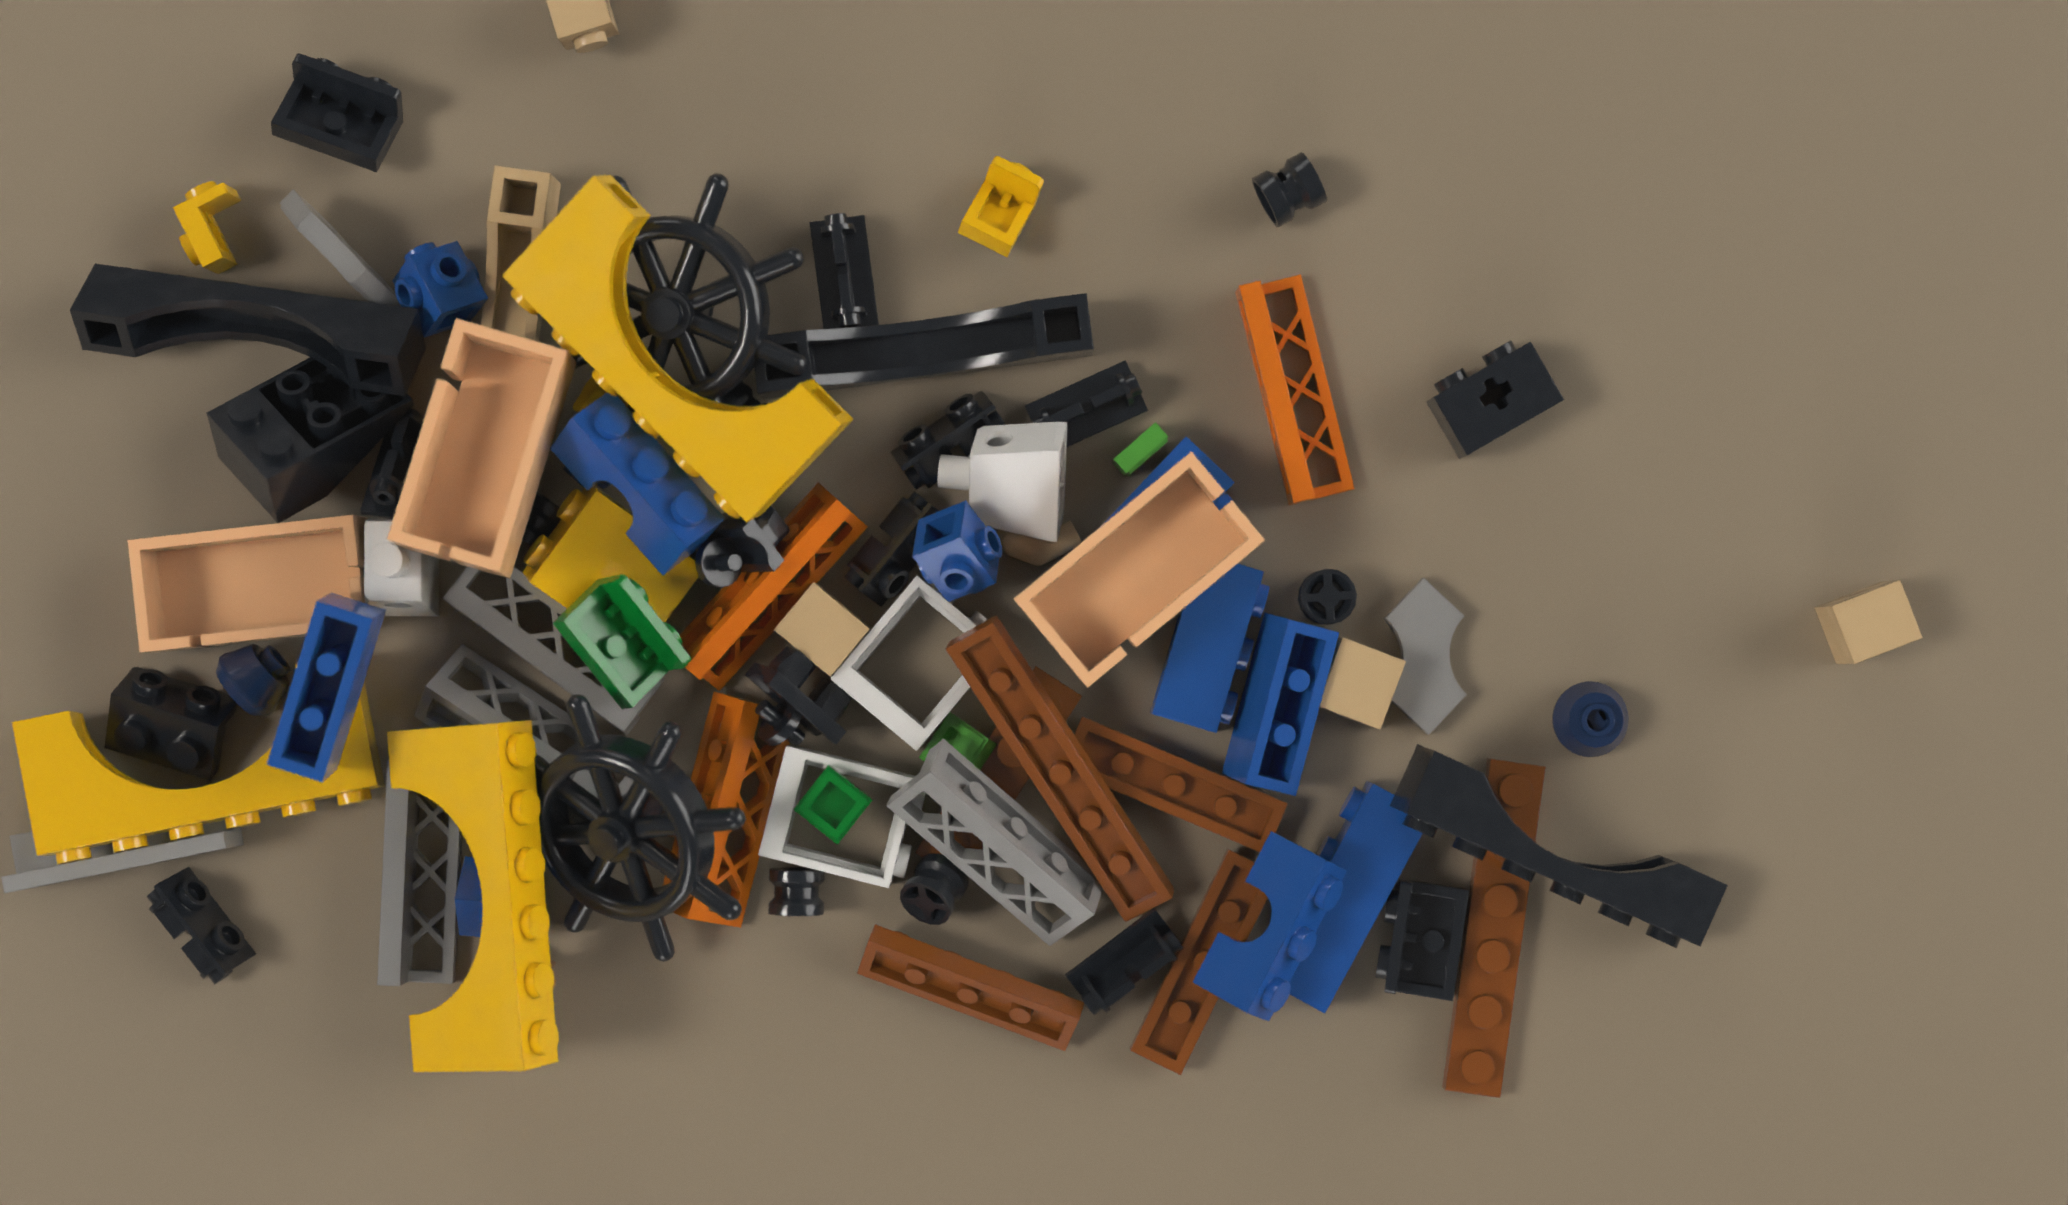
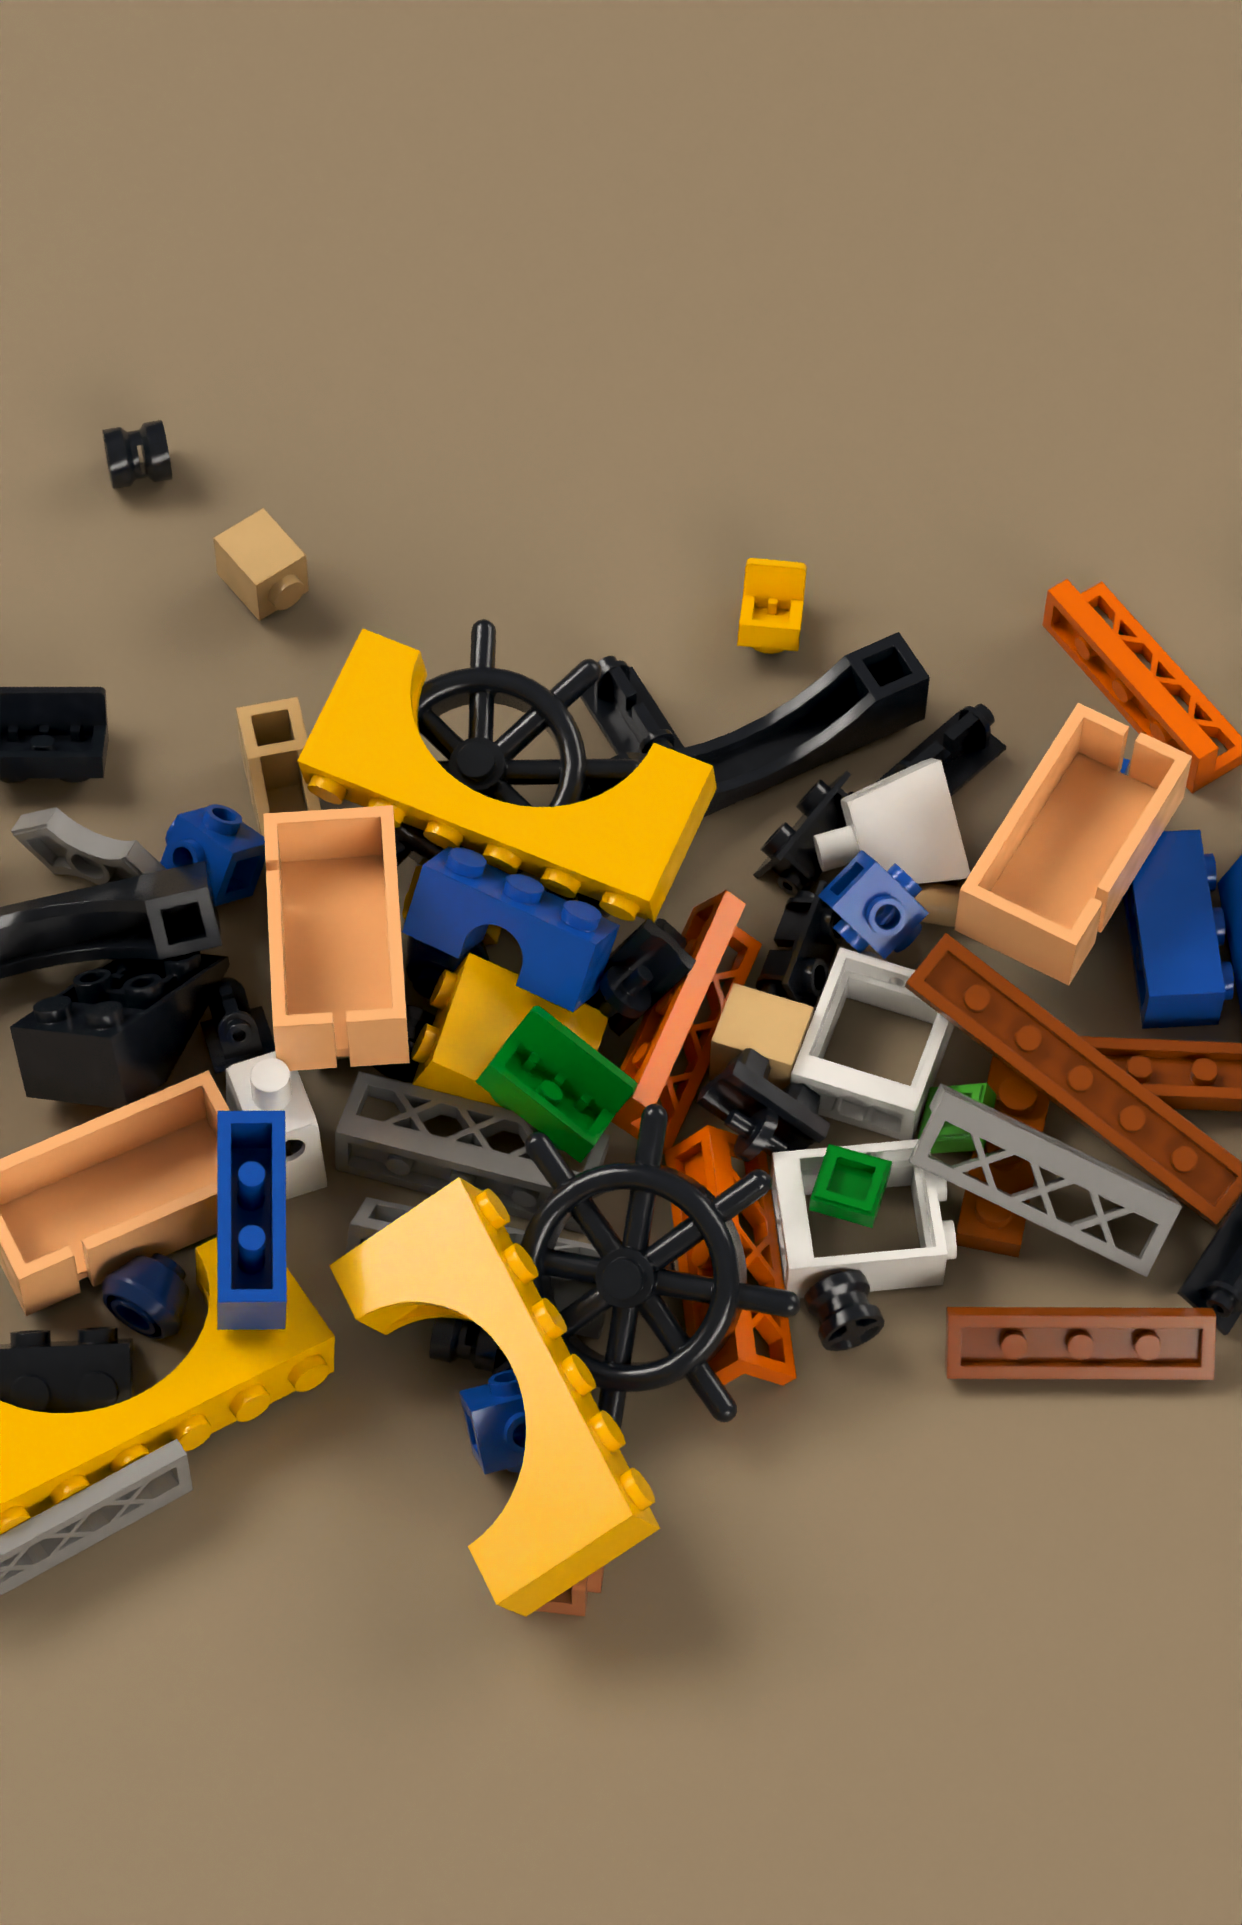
camera: 20 degrees left, 30 degrees down
(186, 905) = (198, 1591): black hinge -> none
(399, 889) = (391, 1447): light grey fence -> none
(933, 889) = (989, 1265): black wheel -> none
(1140, 450) = (1015, 774): bright green tile -> none
(1289, 189) = (1048, 514): black wheel -> none

